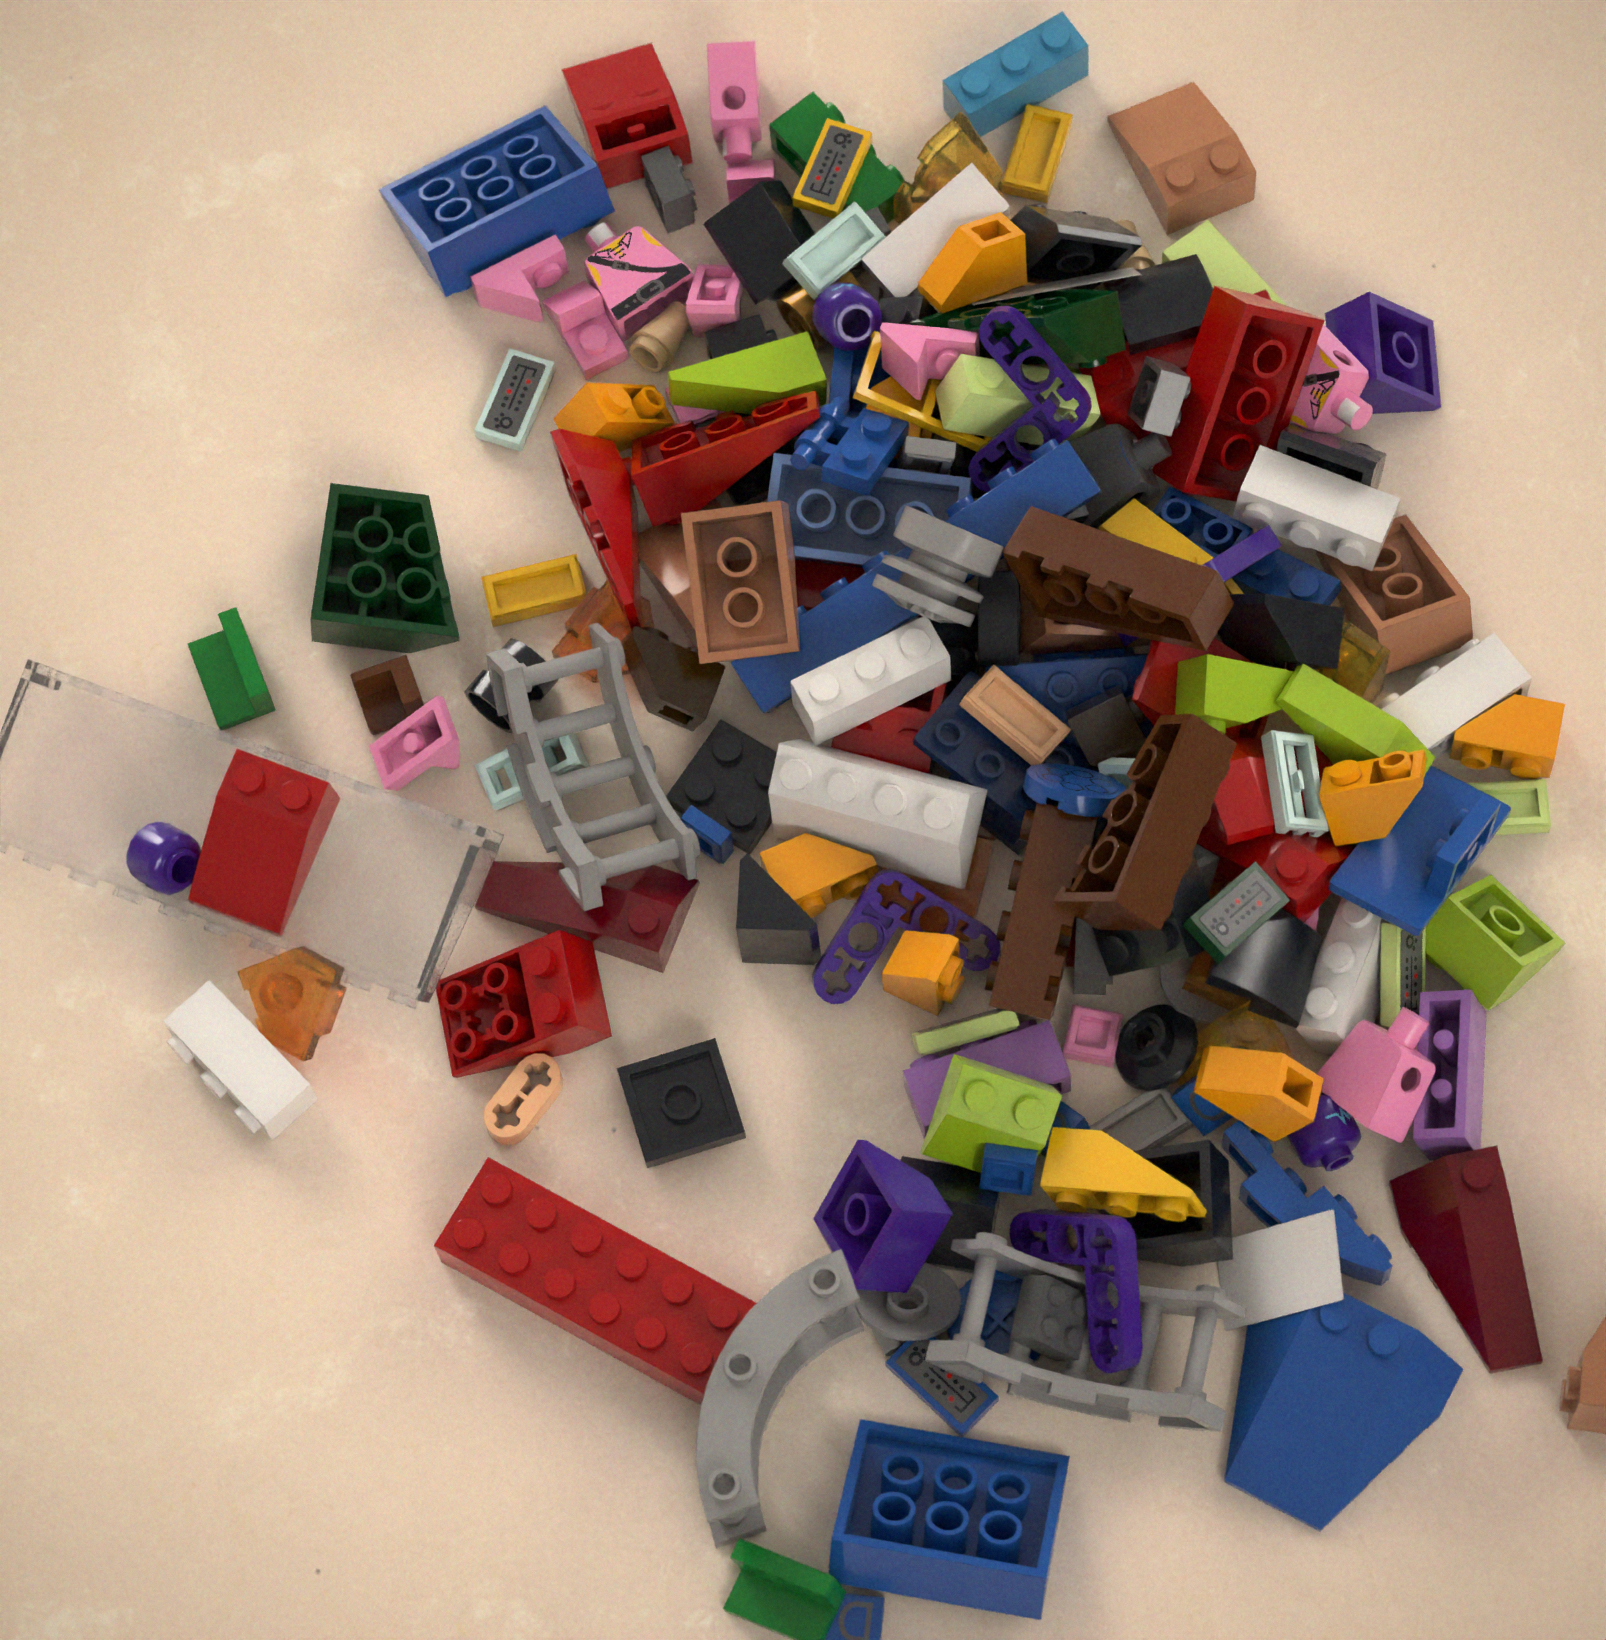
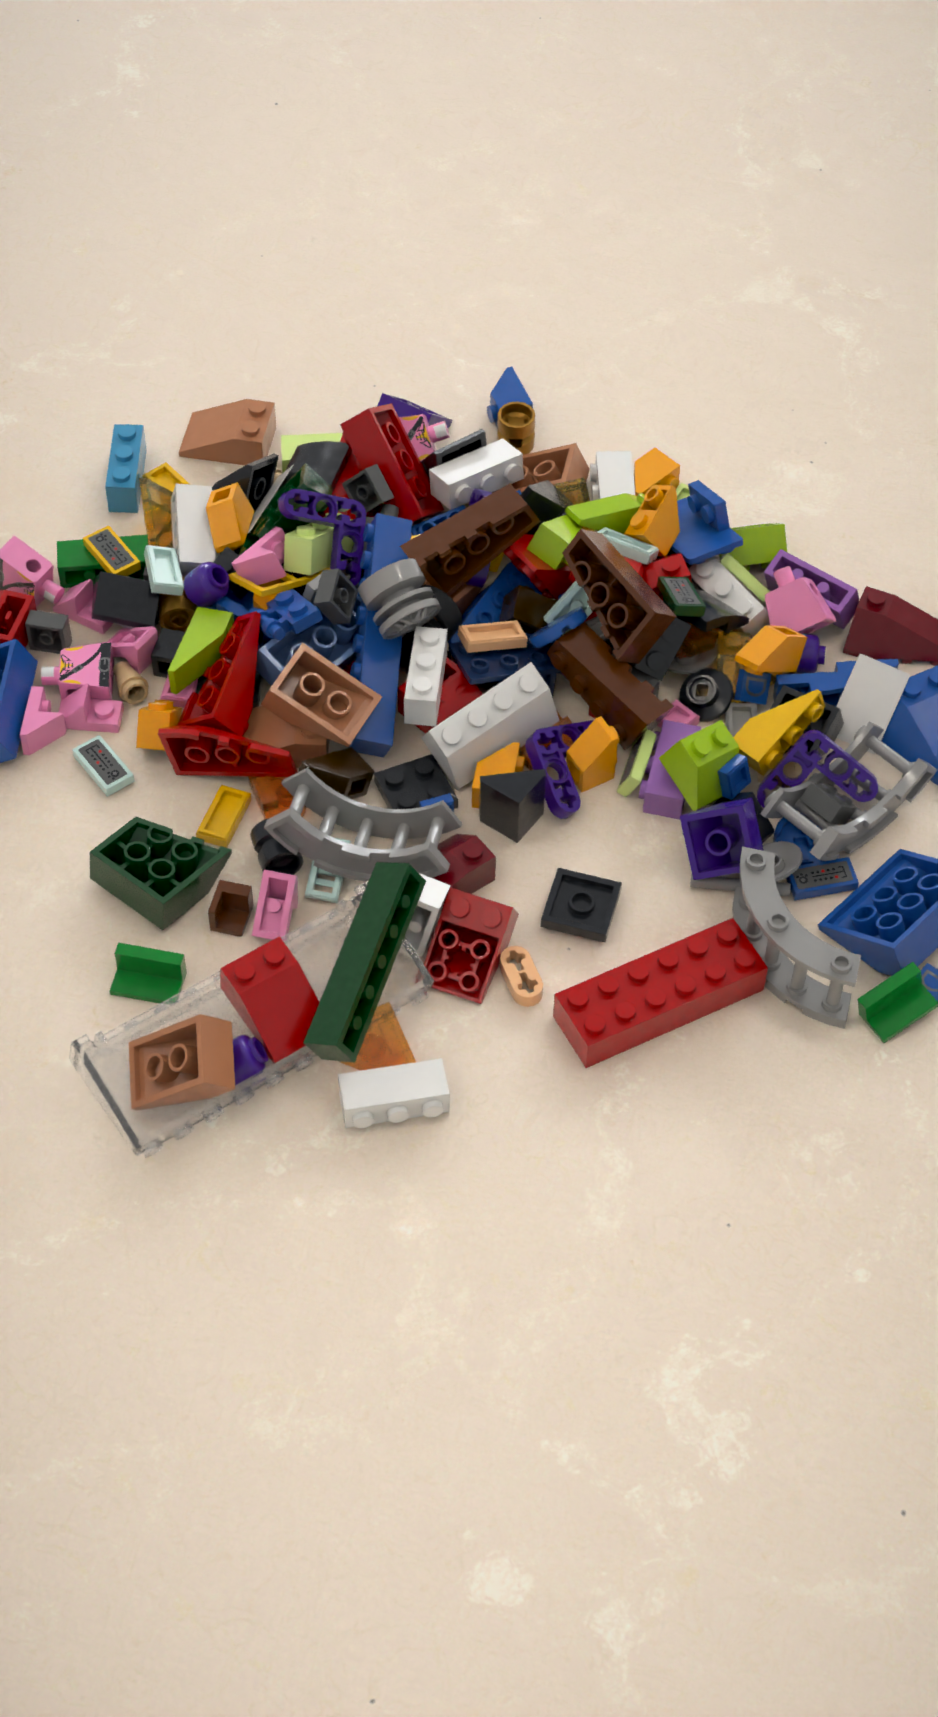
camera: 65 degrees left, 15 degrees down
(99, 801) = (182, 1063): none -> nougat slope
(358, 904) = (365, 962): none -> dark green brick
(514, 917) = (426, 914): none -> white slope
(913, 481) = (336, 596): none -> dark grey piece
(1467, 501) = (517, 426): none -> pearl gold wheel
(1521, 457) = (506, 390): none -> blue slope

